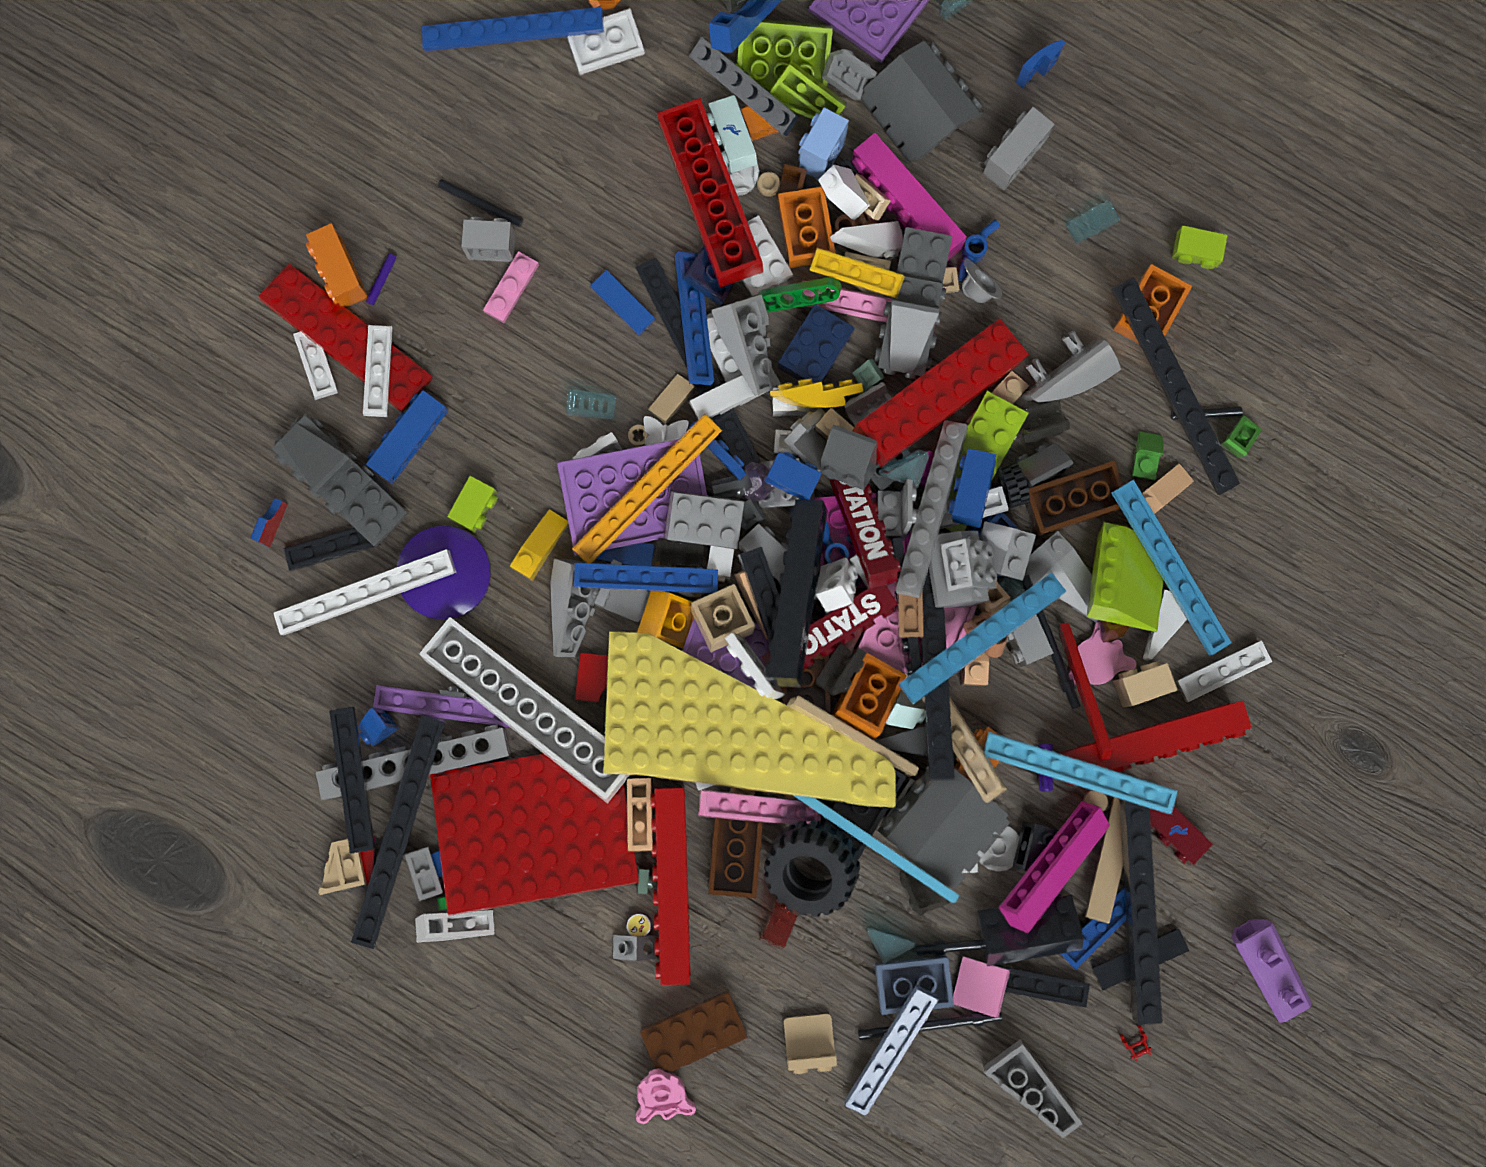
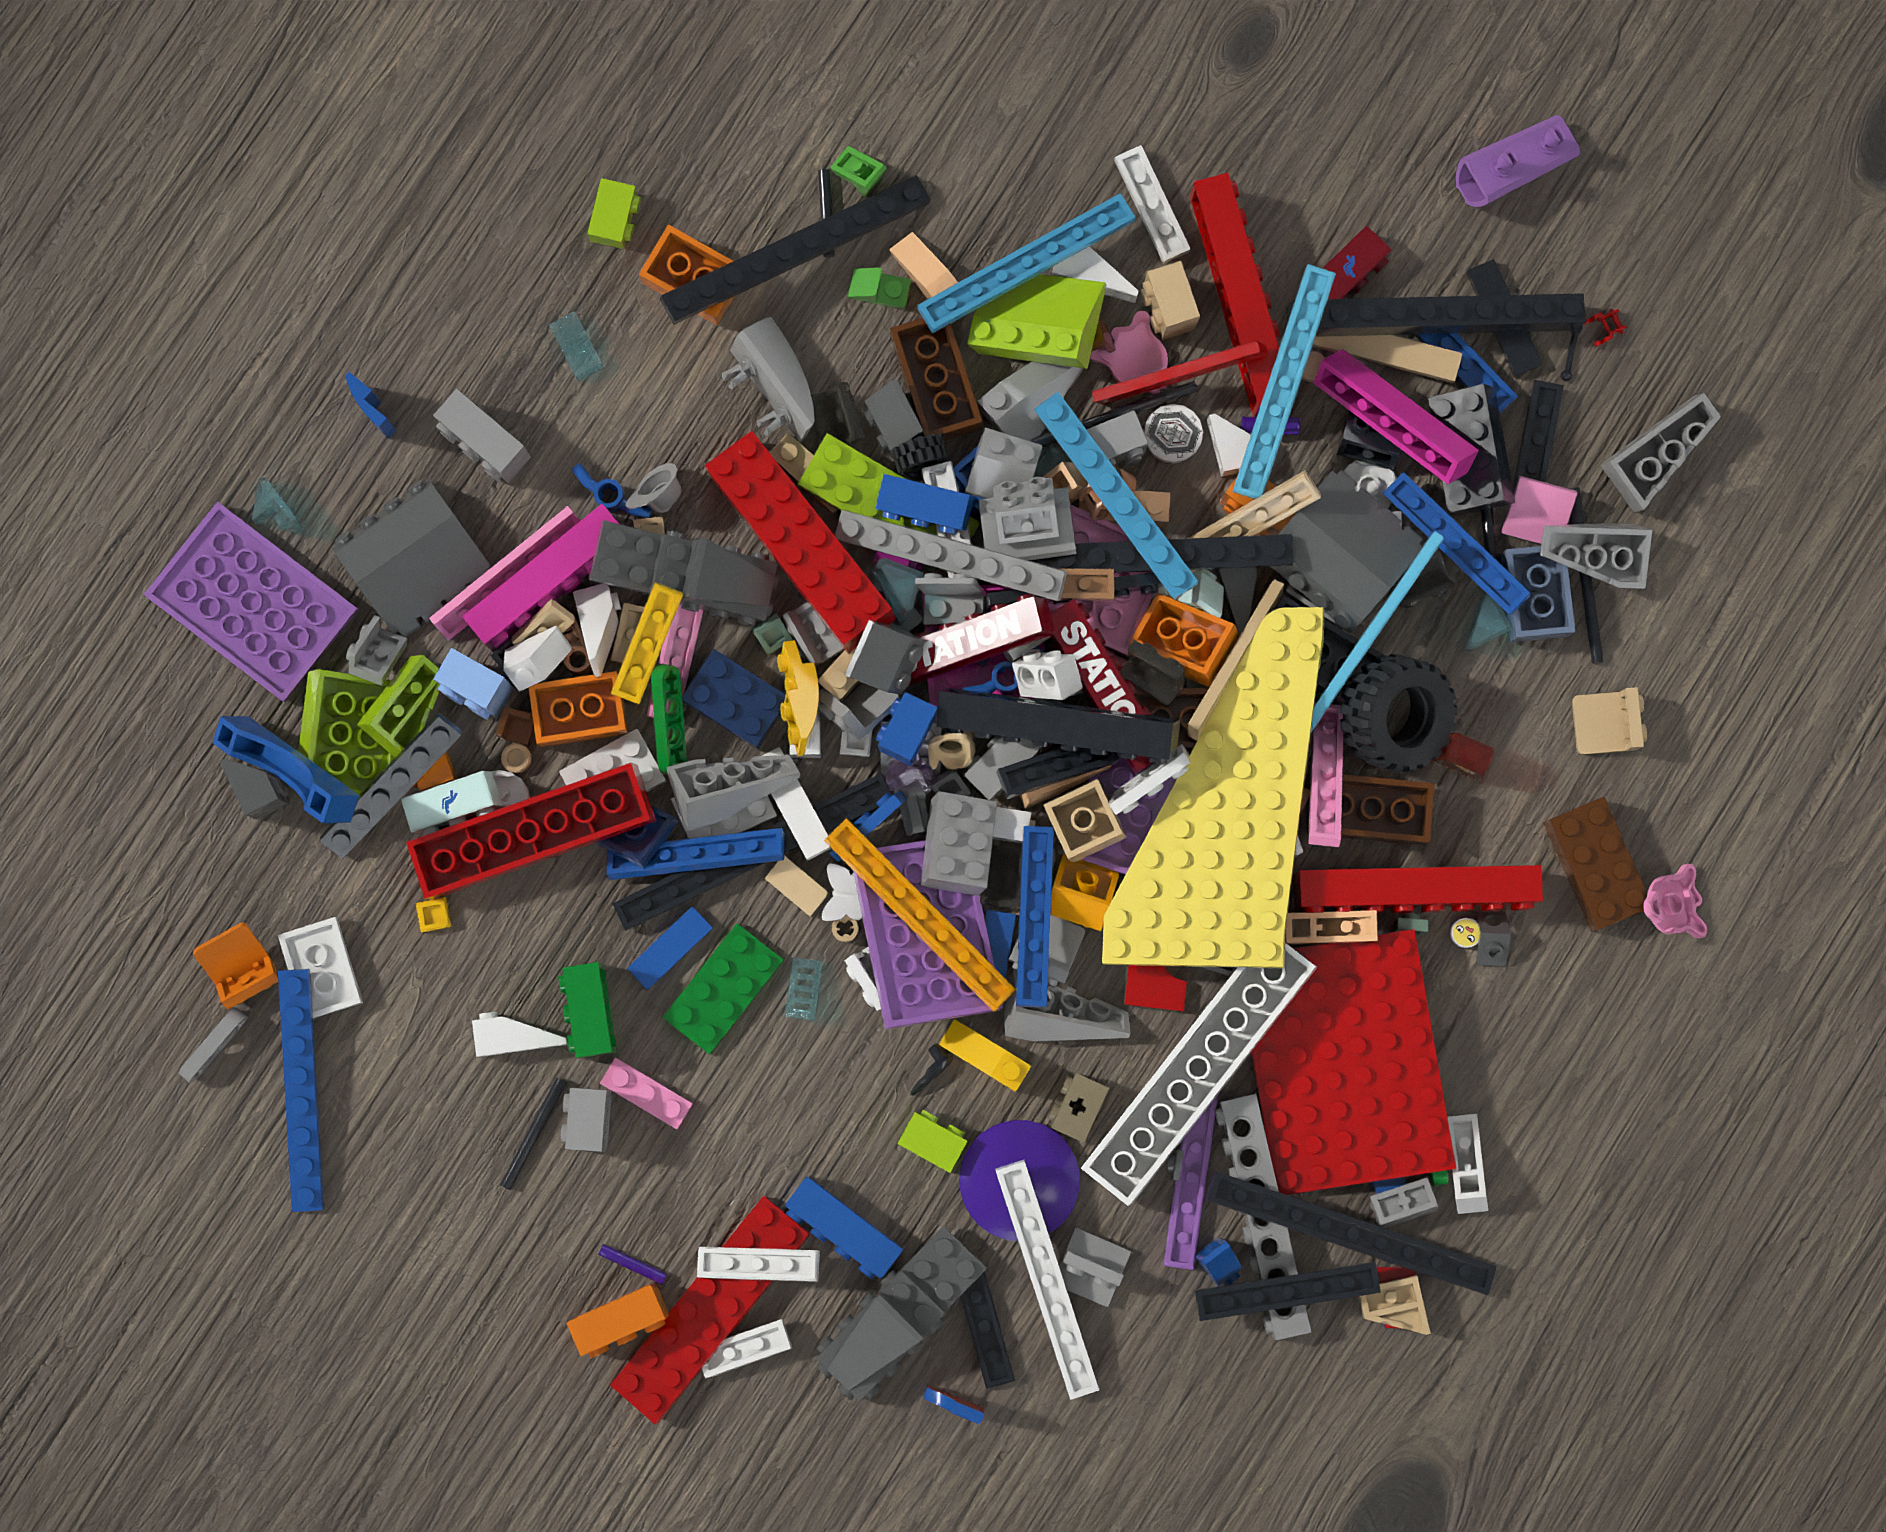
camera: 90 degrees left, 0 degrees up
(376, 630) = (1093, 1266): none -> light grey bracket
(485, 616) = (1092, 1097): none -> dark tan brick
(534, 511) = (941, 1063): none -> black bar
(555, 180) = (504, 1035): none -> white slope
(572, 239) = (588, 1010): none -> green brick
(591, 343) = (723, 988): none -> green plate
(647, 125) = (433, 914): none -> yellow tile
(774, 516) = (956, 752): none -> tan hair
(876, 125) = (449, 617): none -> bright pink plate
(891, 1050) = (1617, 621): plate -> none
(948, 1039) = (1604, 551): none -> light grey wedge
(951, 918) = (1457, 544): none -> blue plate
(1031, 732) = (1228, 444): none -> white slope
(1037, 689) = (1173, 433): none -> tile
(1095, 1011) = (1566, 375): none -> black hinge

